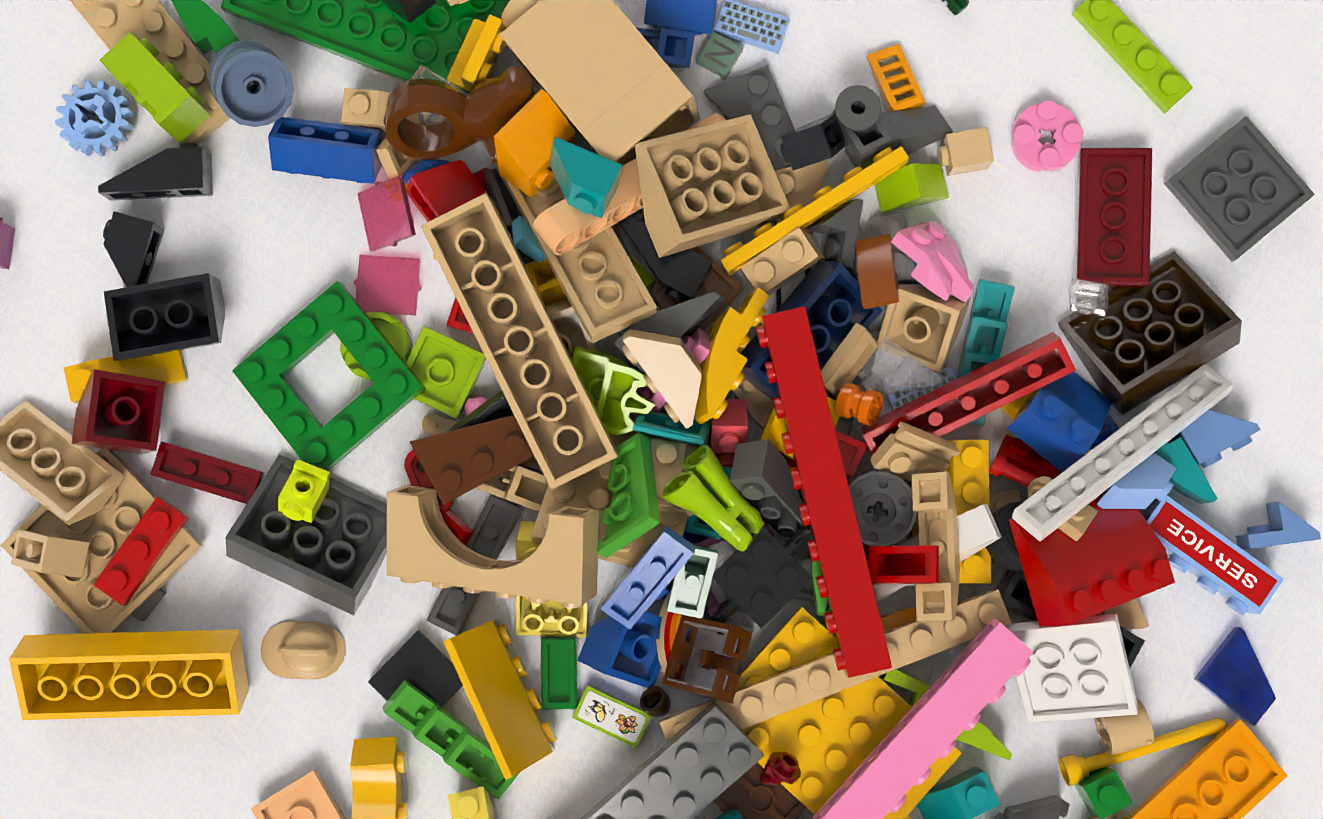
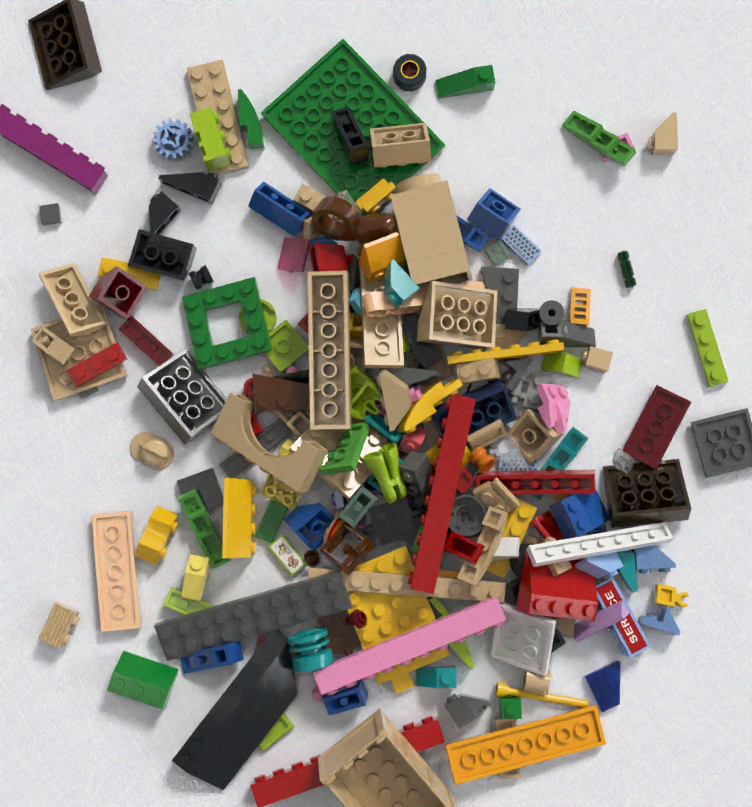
camera: 25 degrees right, 0 degrees up
(130, 674) = (64, 422): yellow brick -> none
(246, 62) = (257, 159): sand blue wheel -> none
(247, 331) = (201, 277): none -> black wheel
(304, 492) = (189, 373): neon yellow brick -> none
(388, 284) = (278, 290): clear pink piece -> none
(648, 577) = (336, 494): plate -> none
(877, 271) = (521, 398): dark orange slope -> none
(1045, 117) = (647, 361): bright pink plate -> none
(1189, 571) = (603, 620): none -> lavender slope
(1267, 485) = (667, 596): none -> yellow plate

